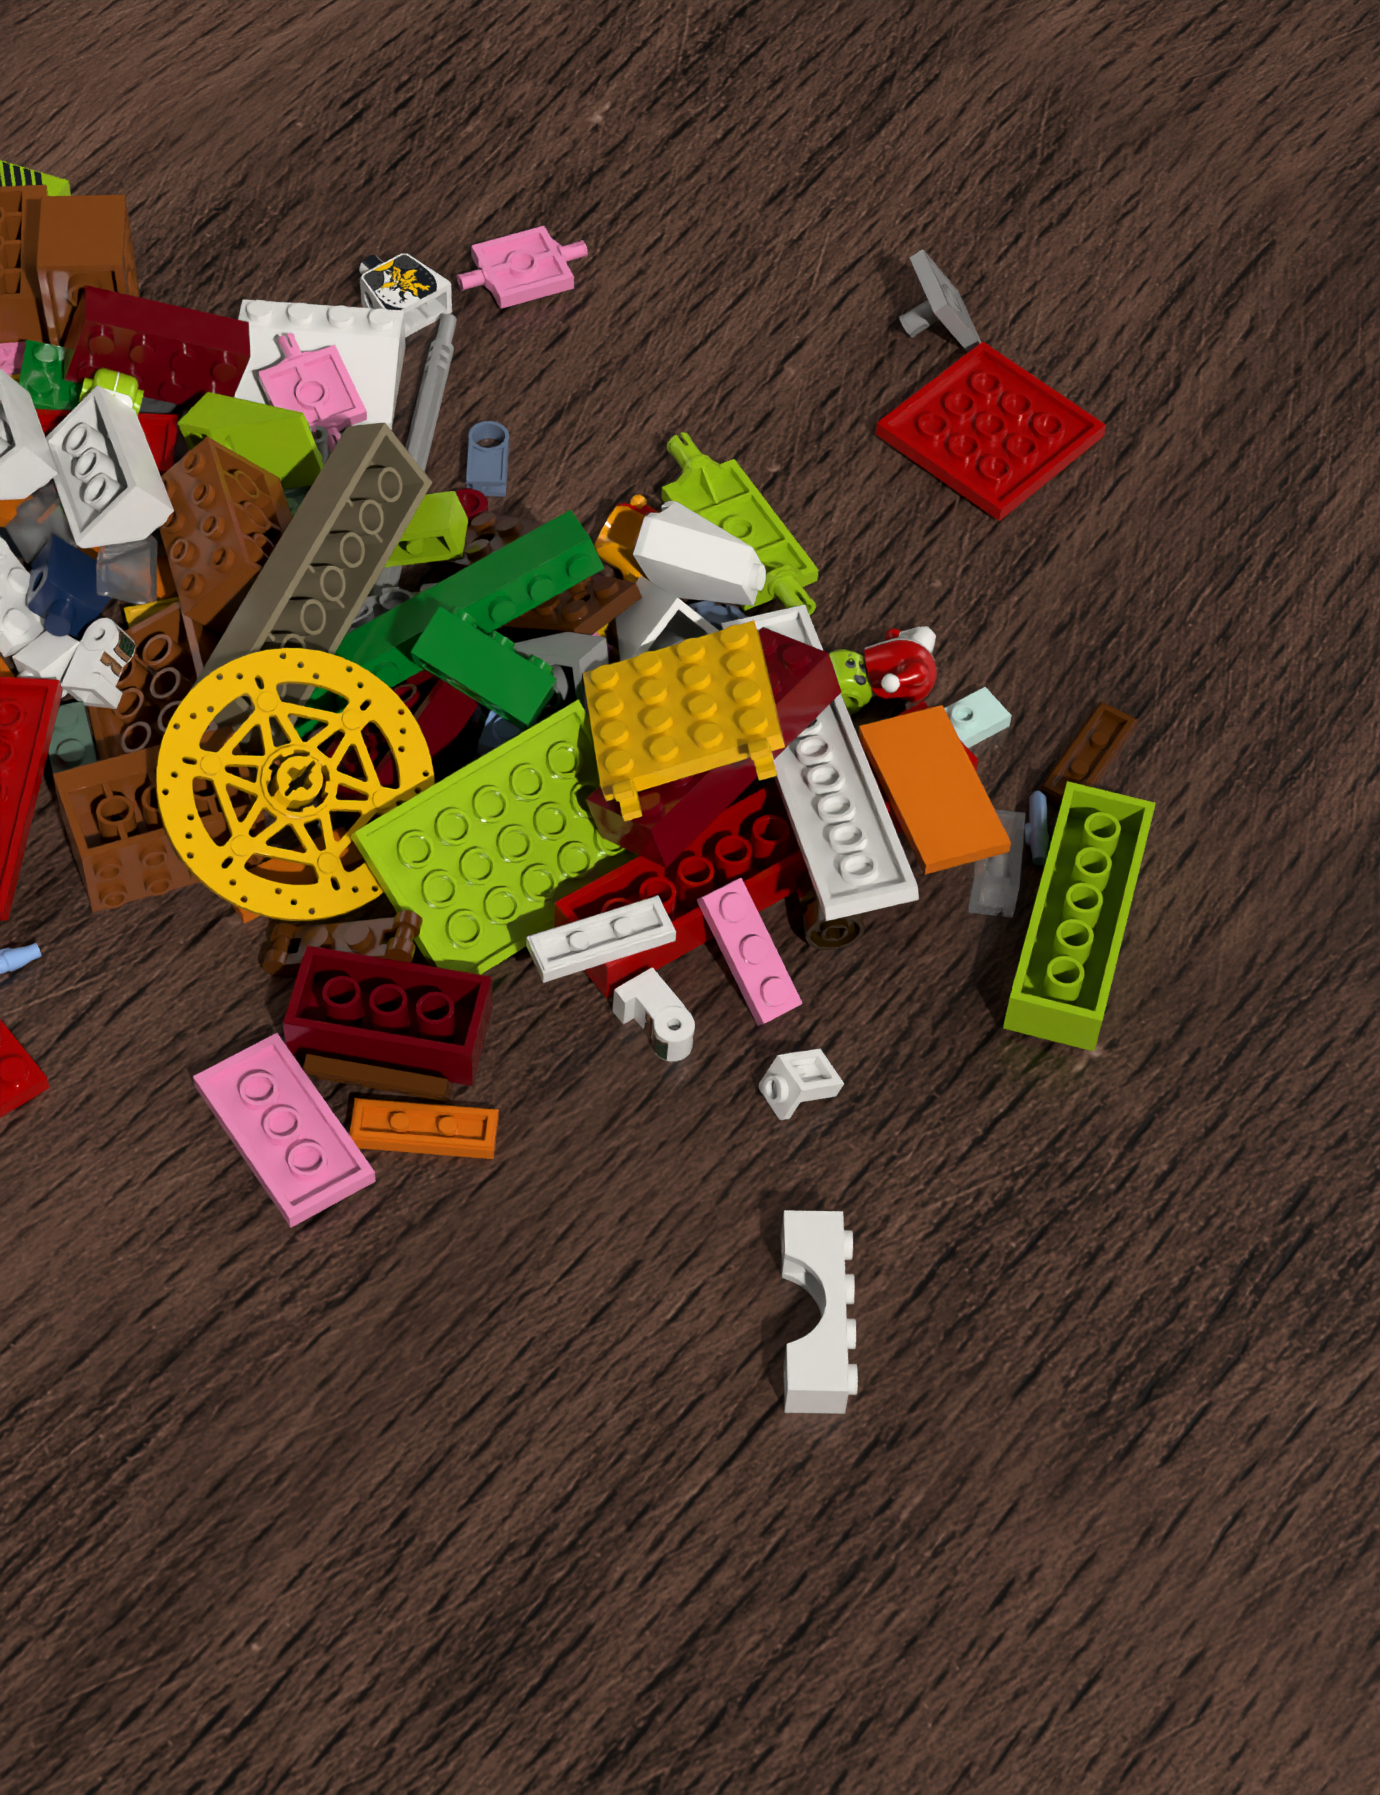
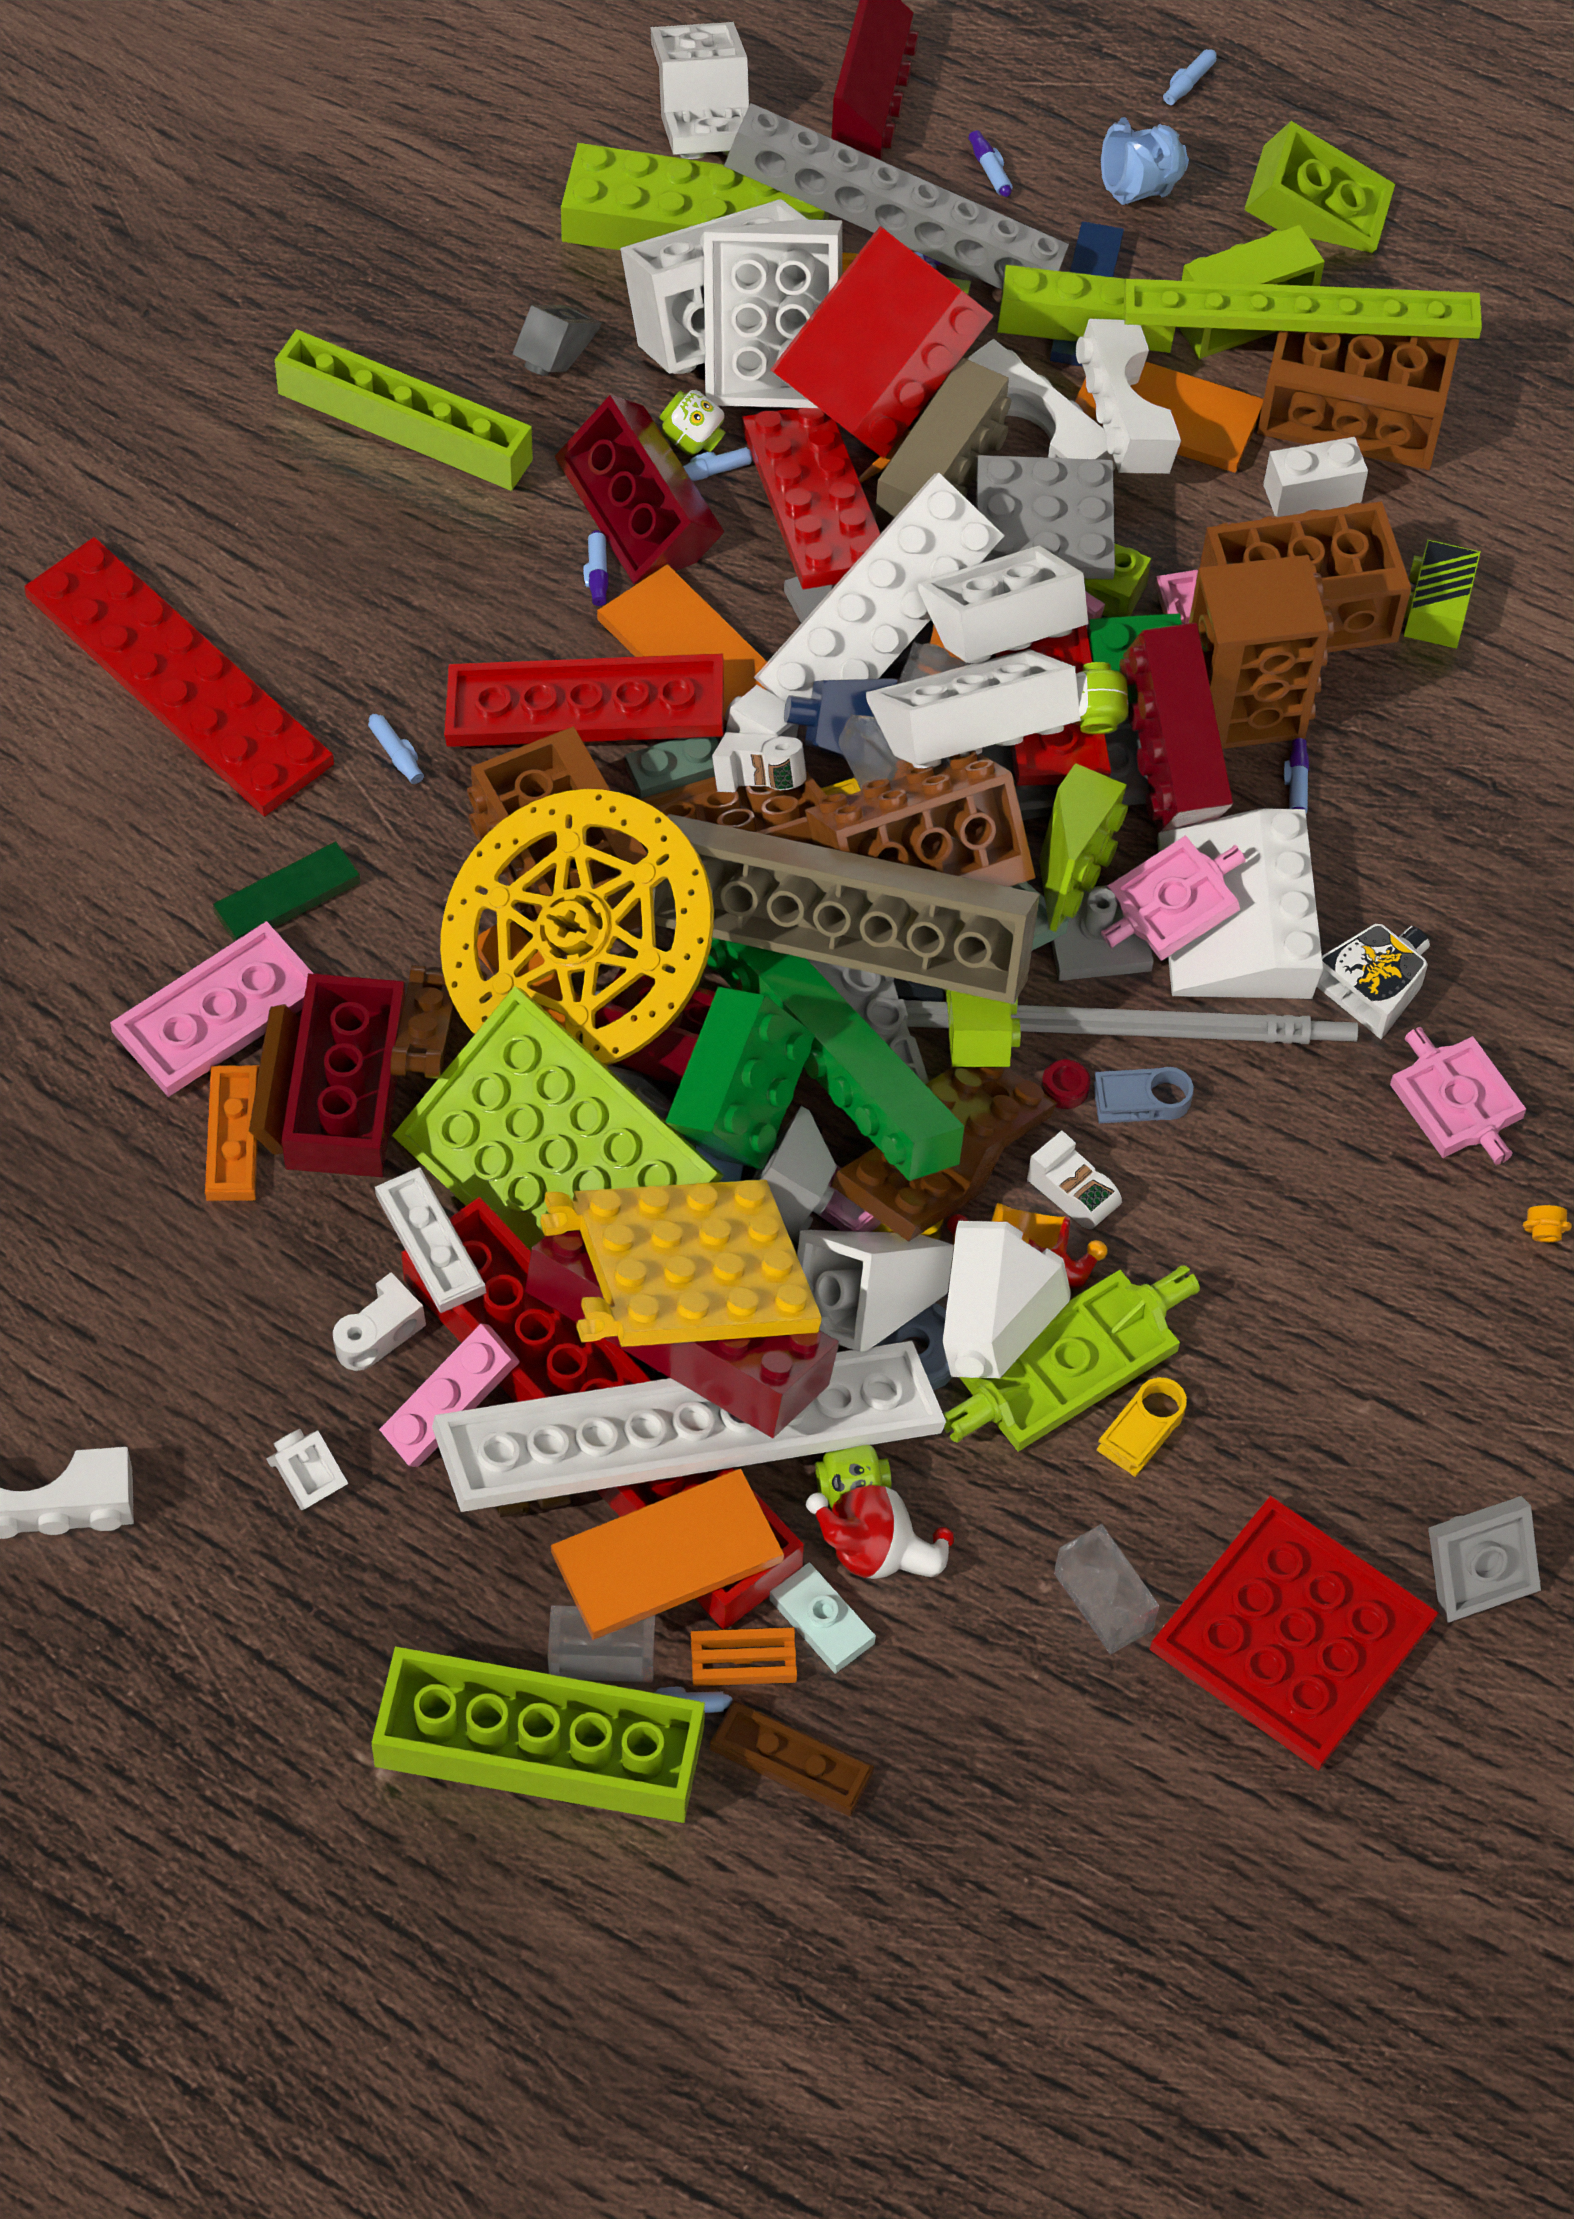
camera: 85 degrees right, 5 degrees up
(153, 1068) = (288, 891): none -> dark green tile
(584, 497) = (1072, 1182): none -> white leg
(645, 234) = (1547, 1223): none -> light orange plate
(806, 504) = (1136, 1432): none -> yellow piece
(958, 527) = (1106, 1589): none -> clear brick
(998, 753) = (743, 1638): none -> orange tile

